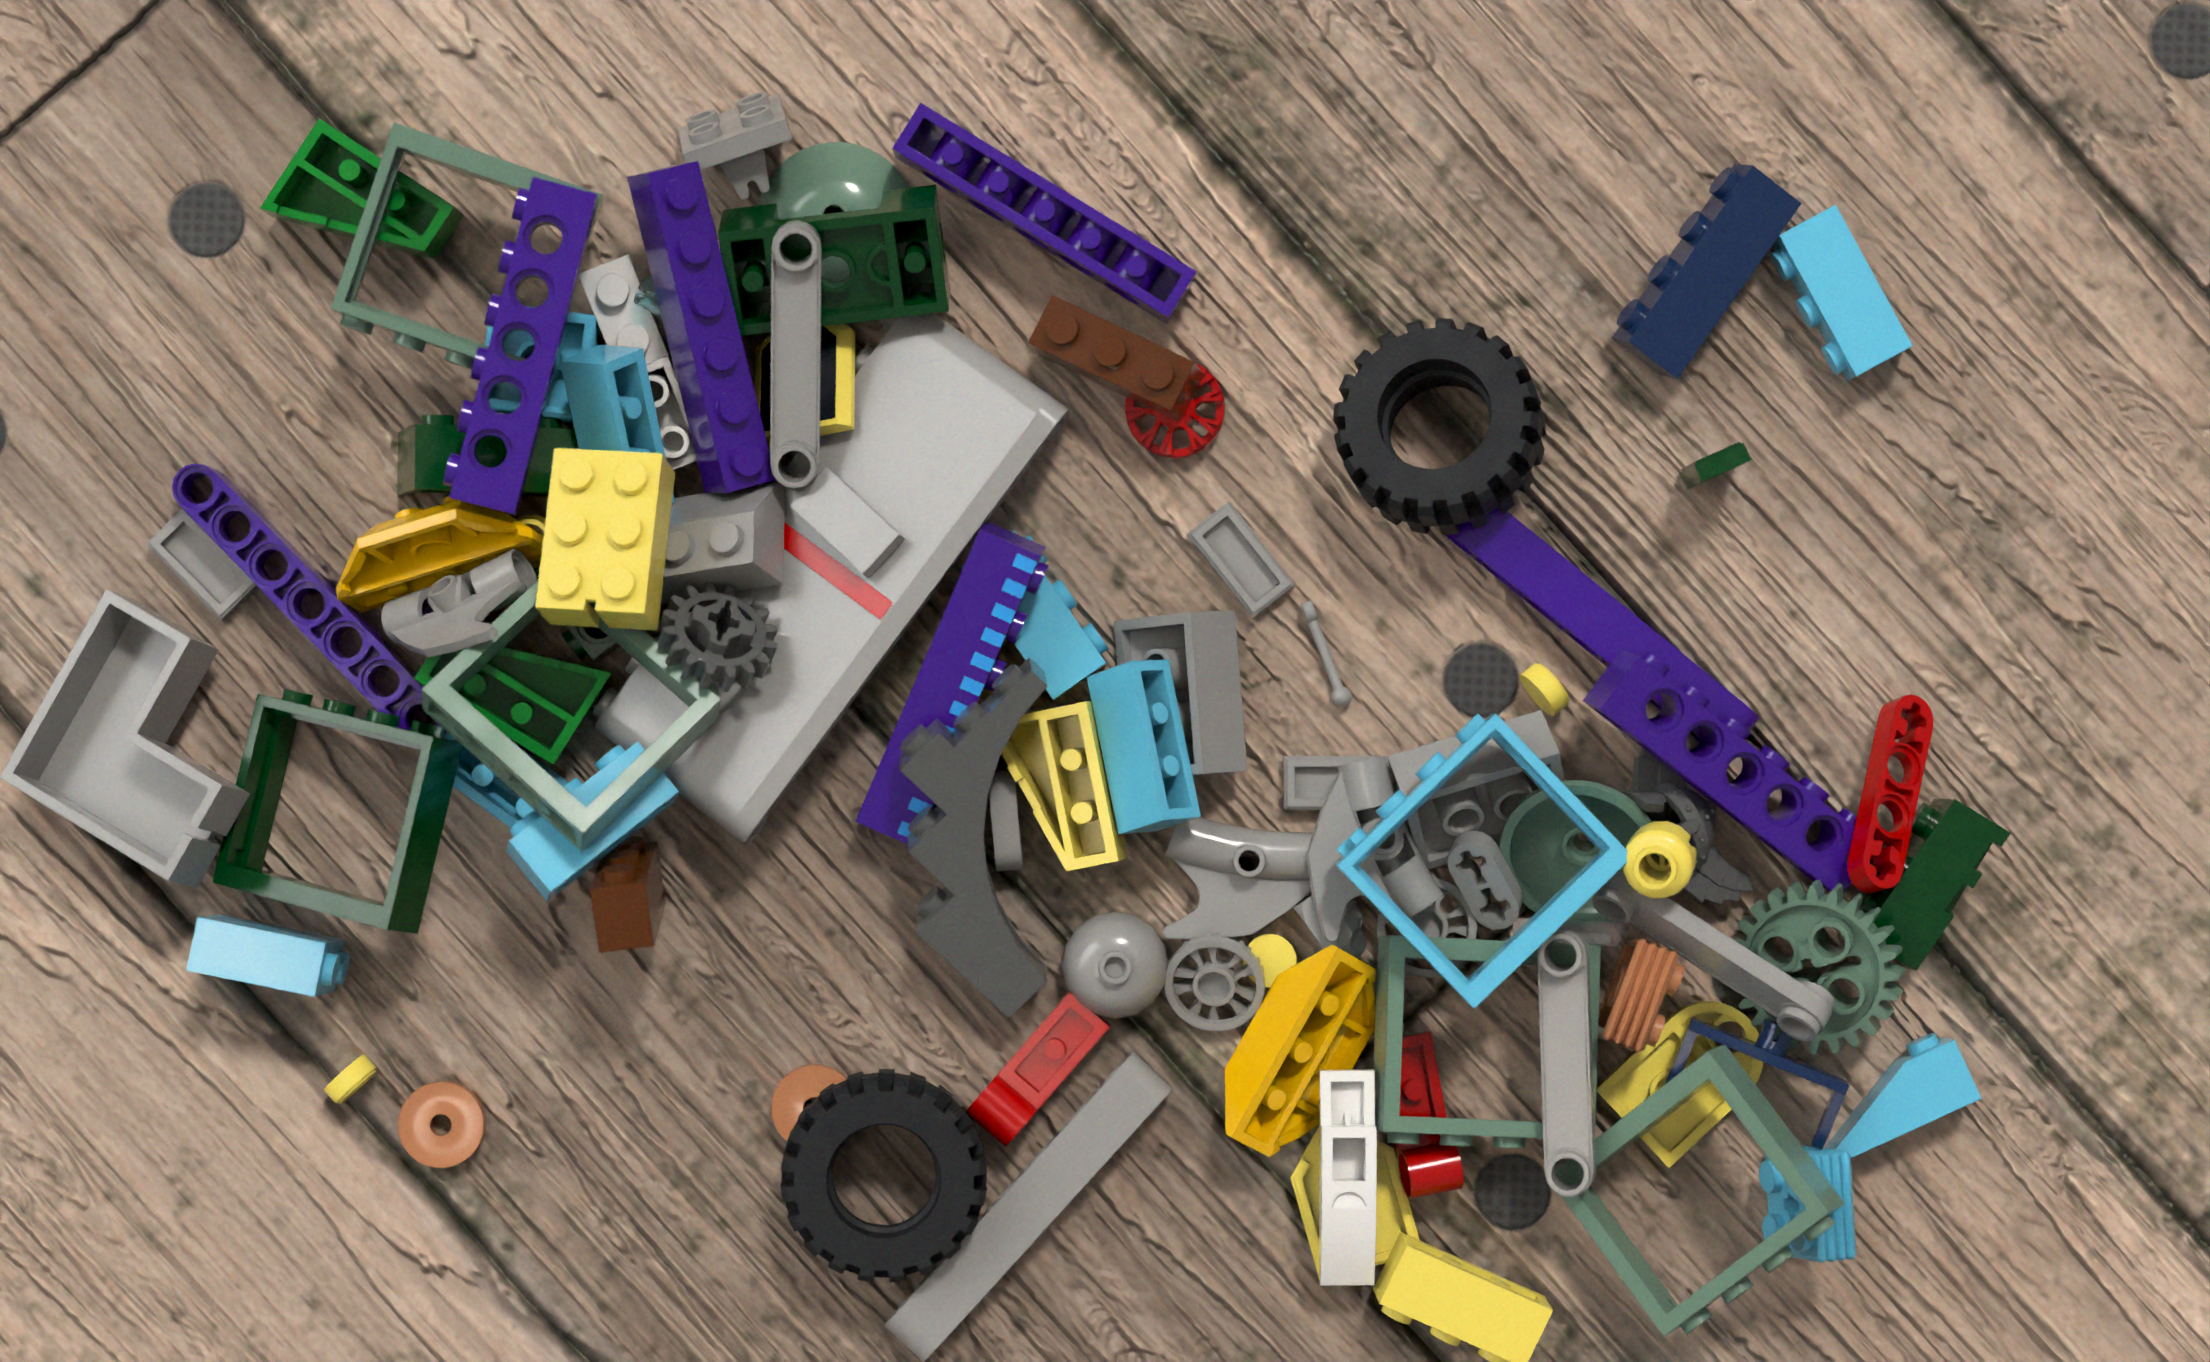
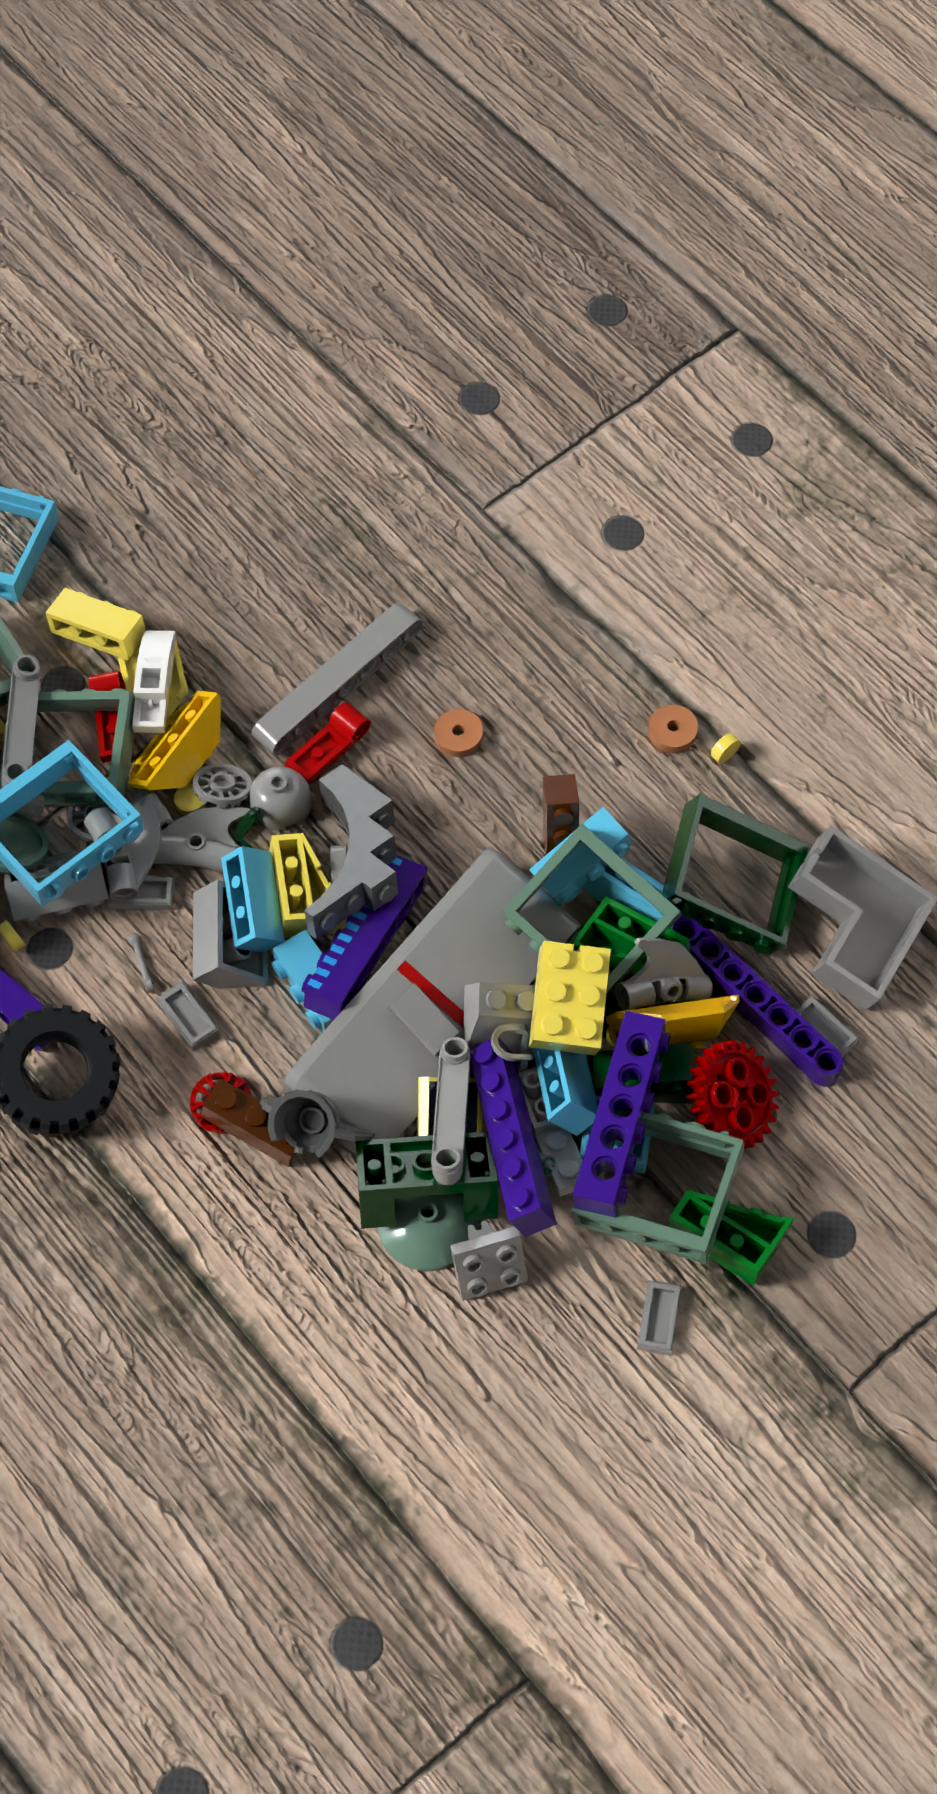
camera: 175 degrees left, 25 degrees down
(267, 955) = (776, 801): medium azure brick -> none
(371, 388) = (733, 1092): none -> red gear
(475, 74) = (659, 1318): none -> light grey tile
(691, 632) = (492, 958): dark grey gear -> none
(692, 482) = (521, 1055): none -> light grey piece
(894, 1248) = (411, 656): black tyre -> none
(1020, 331) = (308, 1122): none -> dark grey helmet
(1043, 213) = (294, 1211): dark purple brick -> none
(1172, 870) = (245, 825): none -> dark green piece
(1476, 884) = (58, 833): light grey beam -> none

